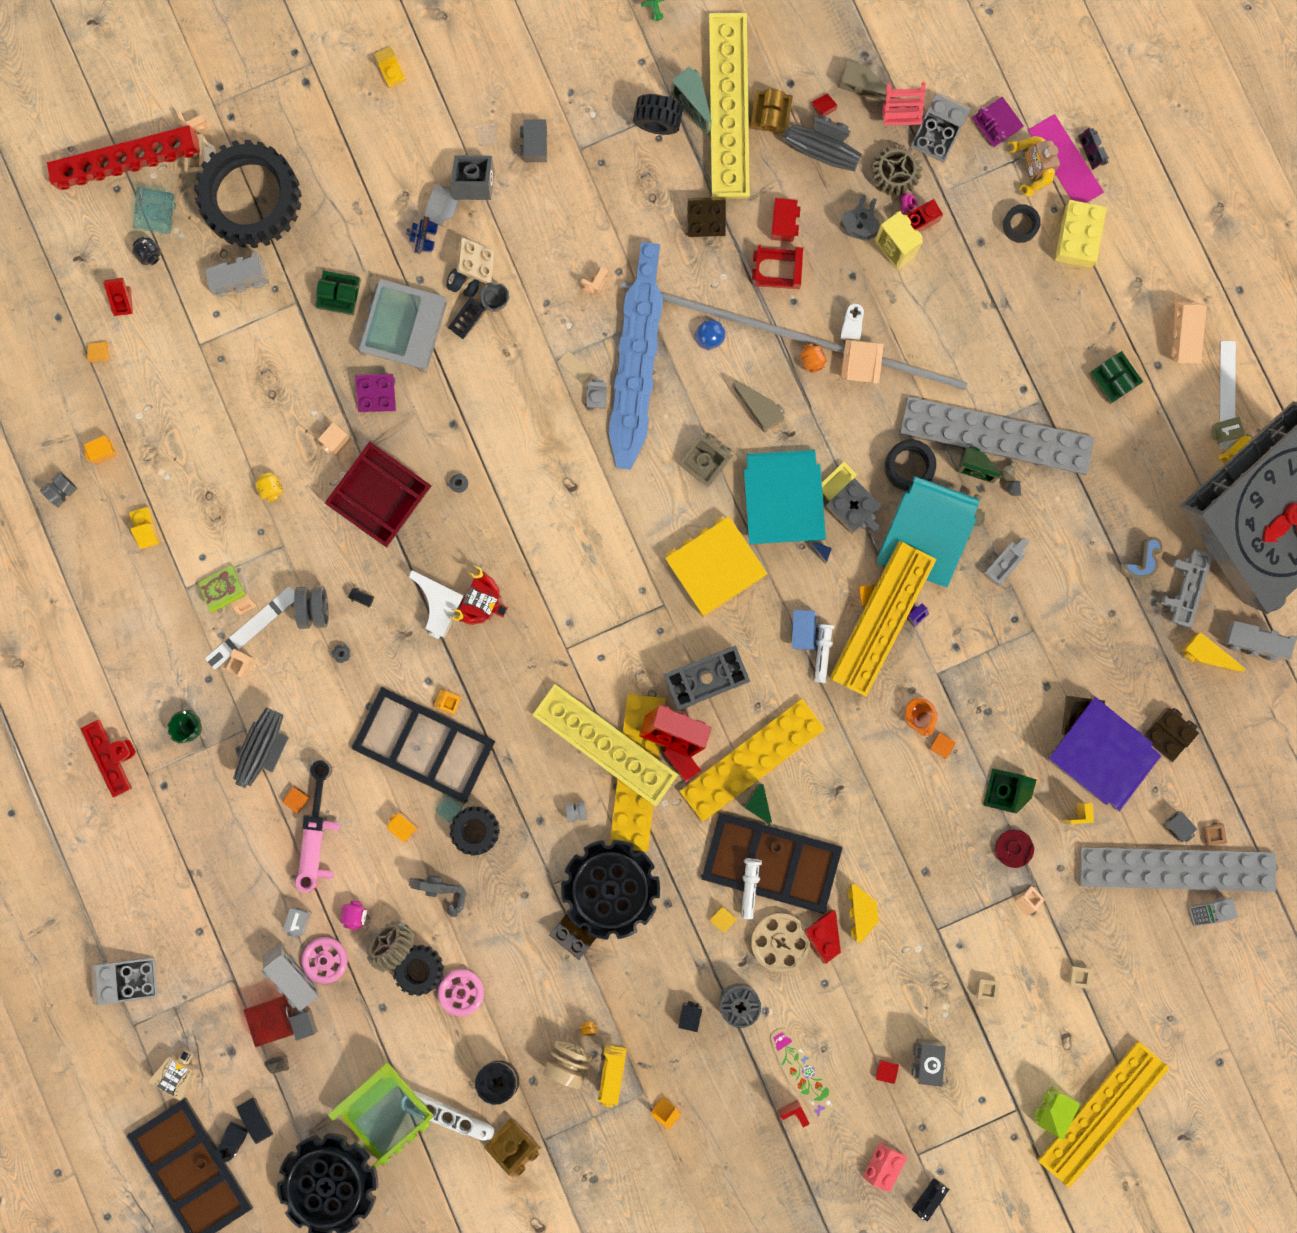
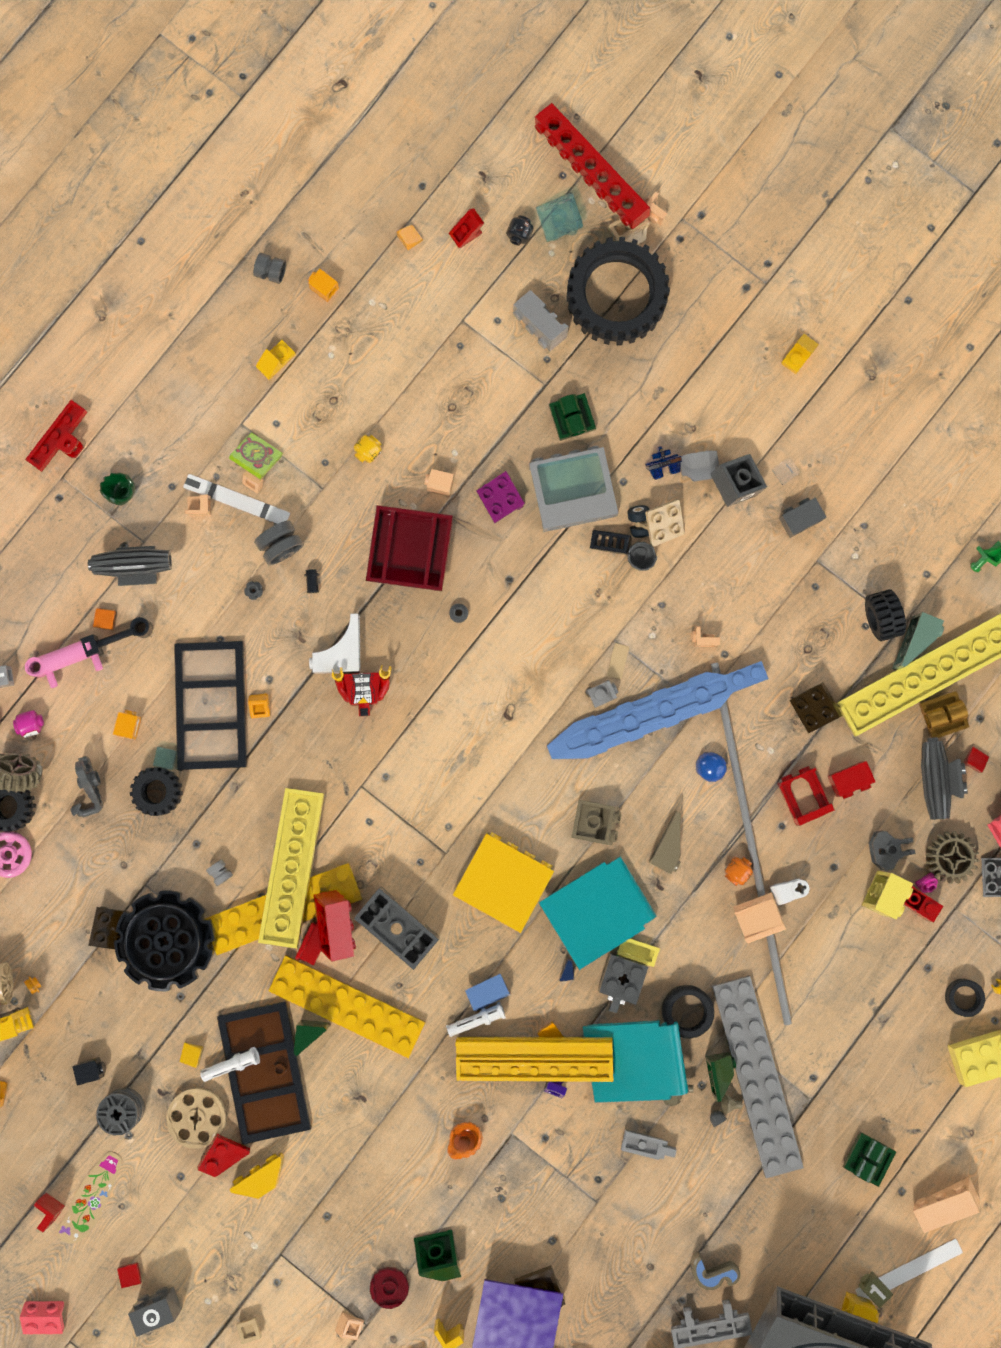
camera: 55 degrees right, 0 degrees up
(942, 745) = (448, 1173): orange tile -> none

